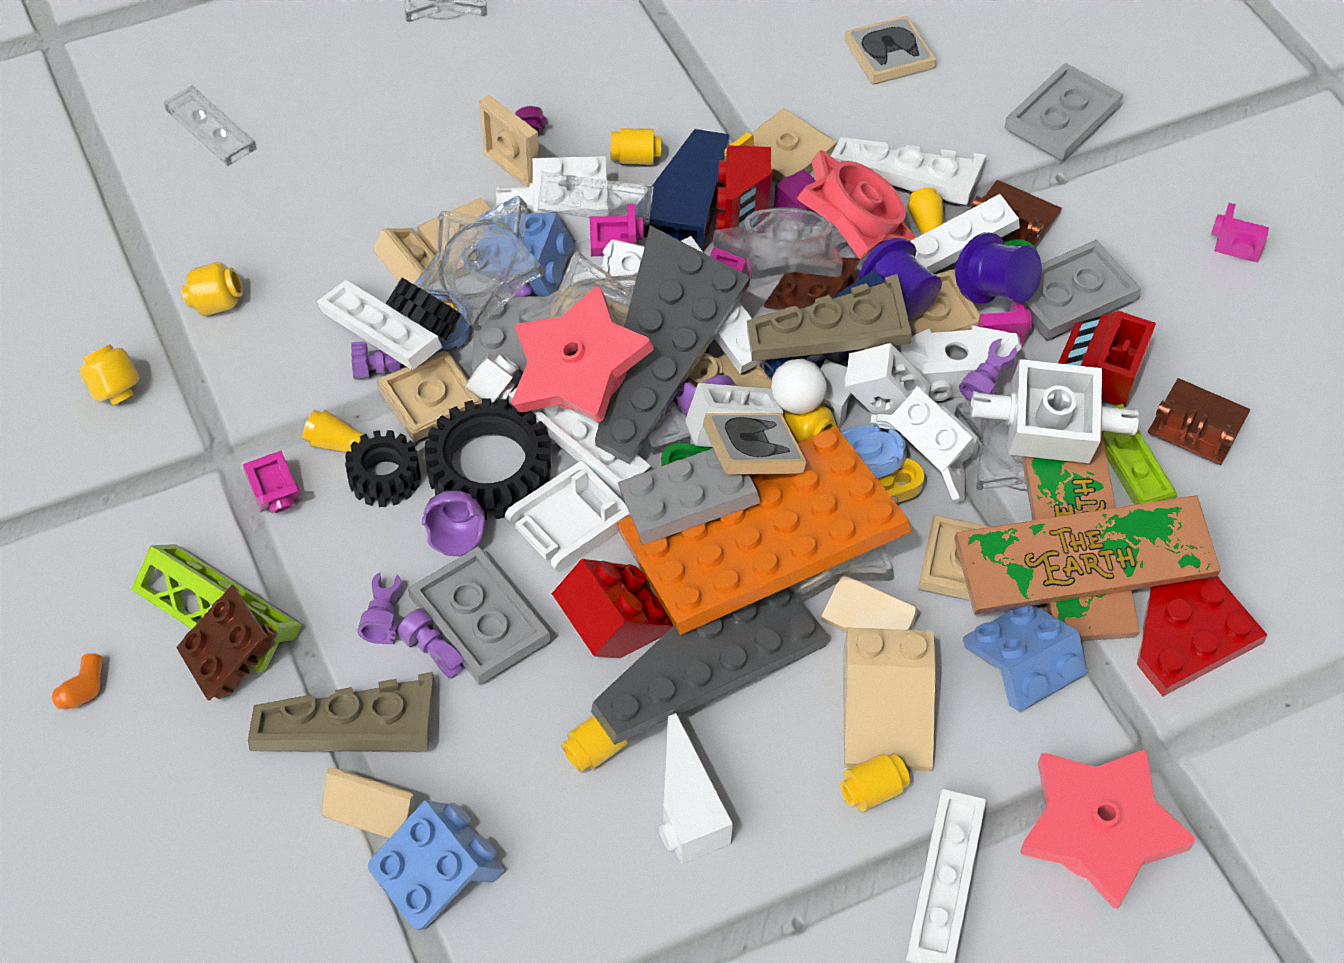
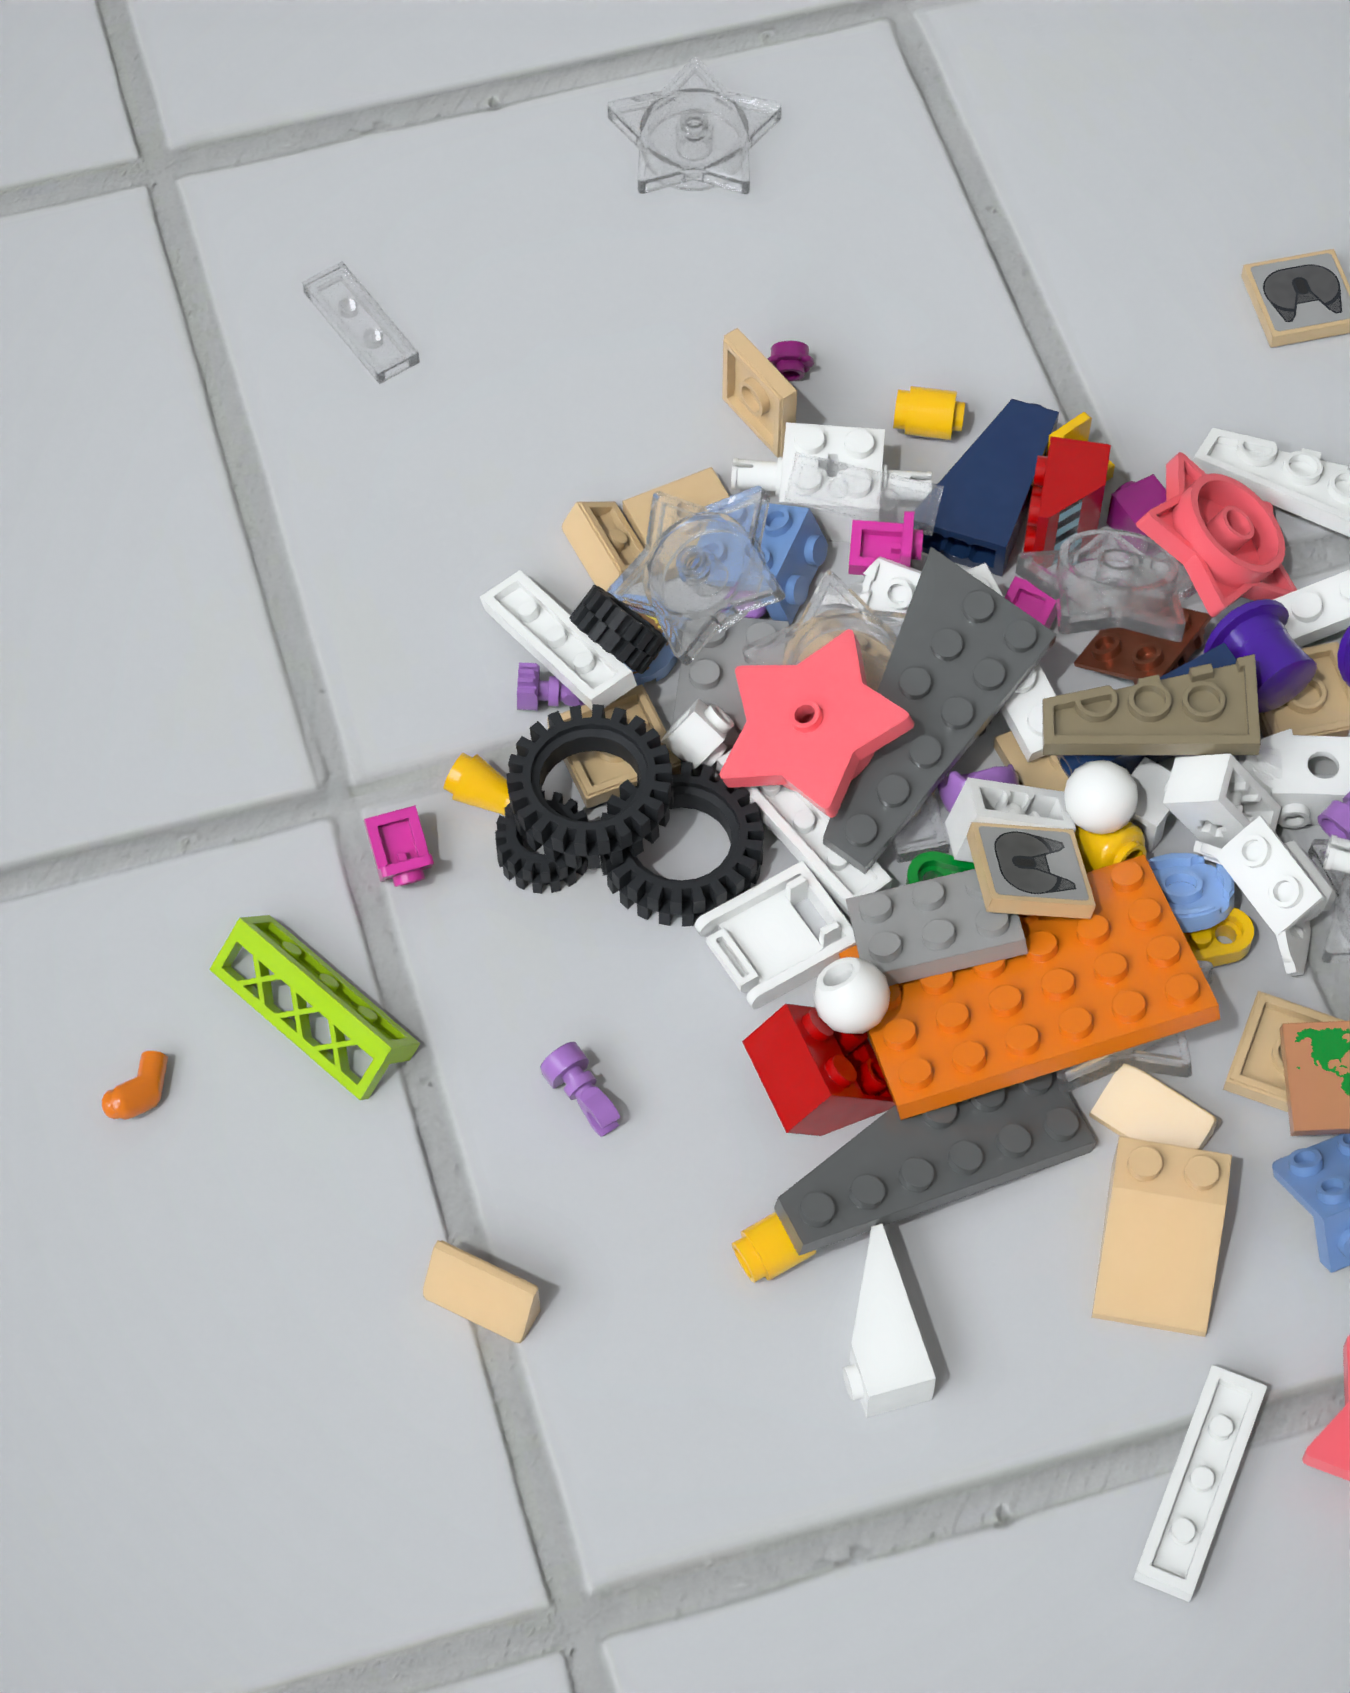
camera: 10 degrees right, 5 degrees up
(109, 374) = (203, 673): yellow head -> none
(212, 288) = (345, 564): yellow head -> none
(223, 643) = (321, 1061): copper hinge -> none
(365, 720) = (489, 1180): dark tan wing -> none
(378, 622) = (516, 1051): medium lavender piece -> none
(419, 457) = (600, 837): none -> black tyre
(432, 861) = (554, 1375): medium blue bracket -> none
(453, 523) = (627, 929): medium lavender hair -> none
(479, 614) = (647, 1057): light grey plate -> none
(631, 546) = (851, 995): none -> white piece
(707, 362) = (994, 751): tan plate -> none
(791, 143) = (1142, 430): tan plate -> none
(874, 781) = (1127, 1343): yellow brick -> none
(926, 209) = (1316, 549): yellow cone -> none

